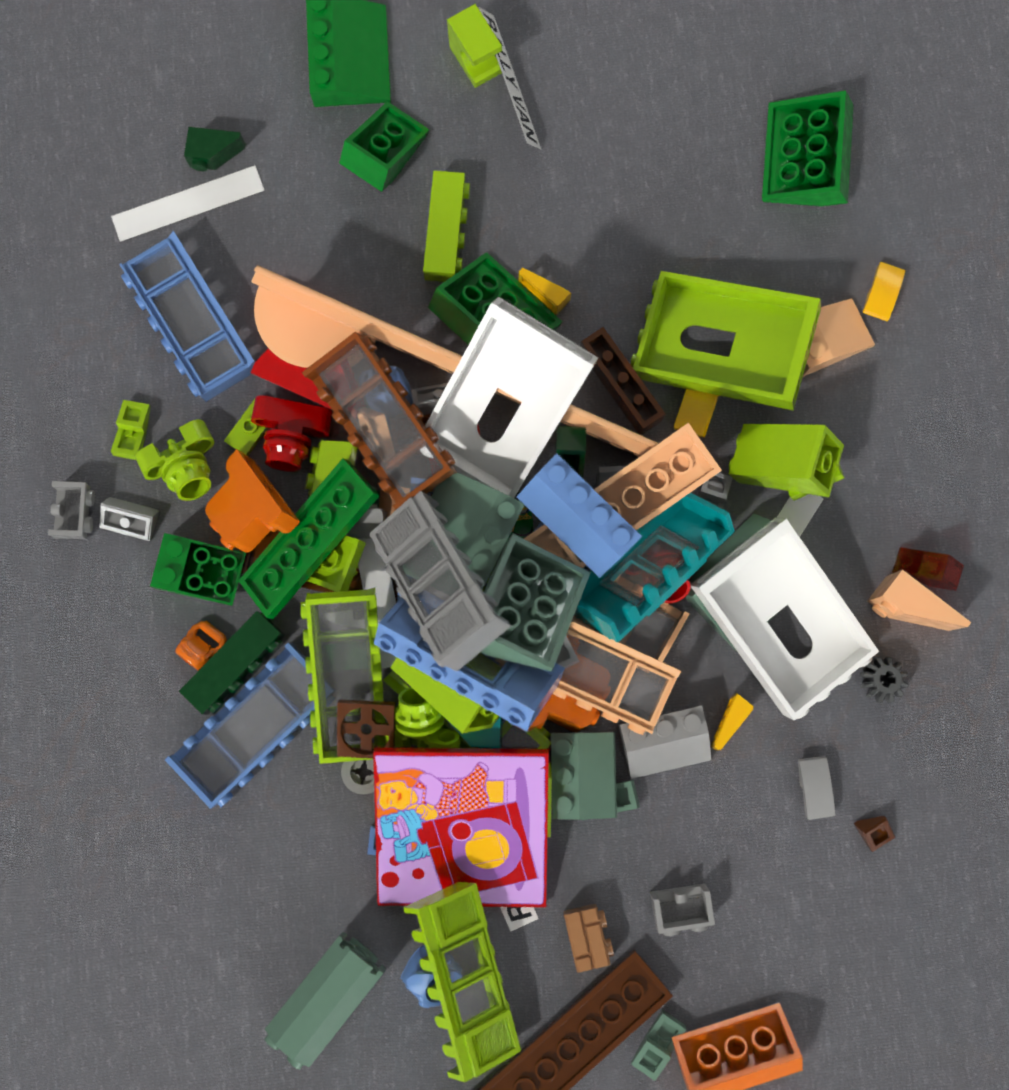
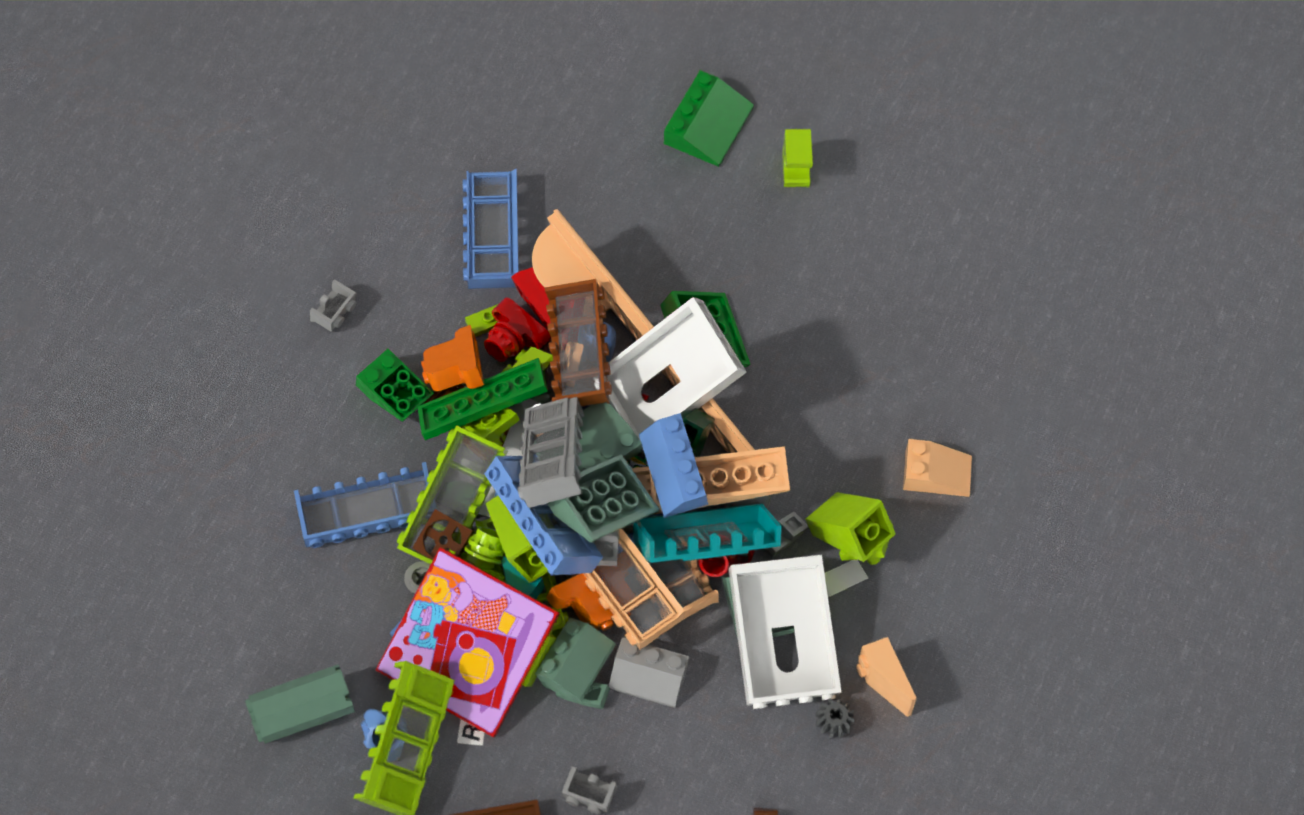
camera: 25 degrees right, 20 degrees down
(128, 518) = (367, 333): light grey slope -> none
(132, 429) = (408, 278): lime slope -> none
(182, 463) = (427, 319): lime beam -> none
(187, 203) = (537, 160): white sticker -> none
(194, 649) = (358, 439): orange piece -> none
(211, 147) = (576, 133): dark green slope -> none
(231, 663) = (378, 457): dark green brick -> none
(382, 146) = (694, 189): green slope -> none
(445, 225) = (706, 259): lime brick -> none
(512, 85) = (810, 192): white sticker -> none
(549, 293) = (750, 337): yellow slope -> none
(587, 937) = (509, 772): medium nougat brick -> none
(623, 382) = (765, 412): reddish brown brick -> none
(696, 410) = (810, 466): yellow slope -> none
(734, 715) = (707, 684): yellow slope -> none
(768, 347) = (877, 457): lime panel -> none
(808, 150) = (998, 342): green slope -> none
(816, 787) = (739, 765): light grey slope -> none
(884, 291) = (996, 462): yellow slope -> none
(930, 568) = (917, 661): clear red slope -> none

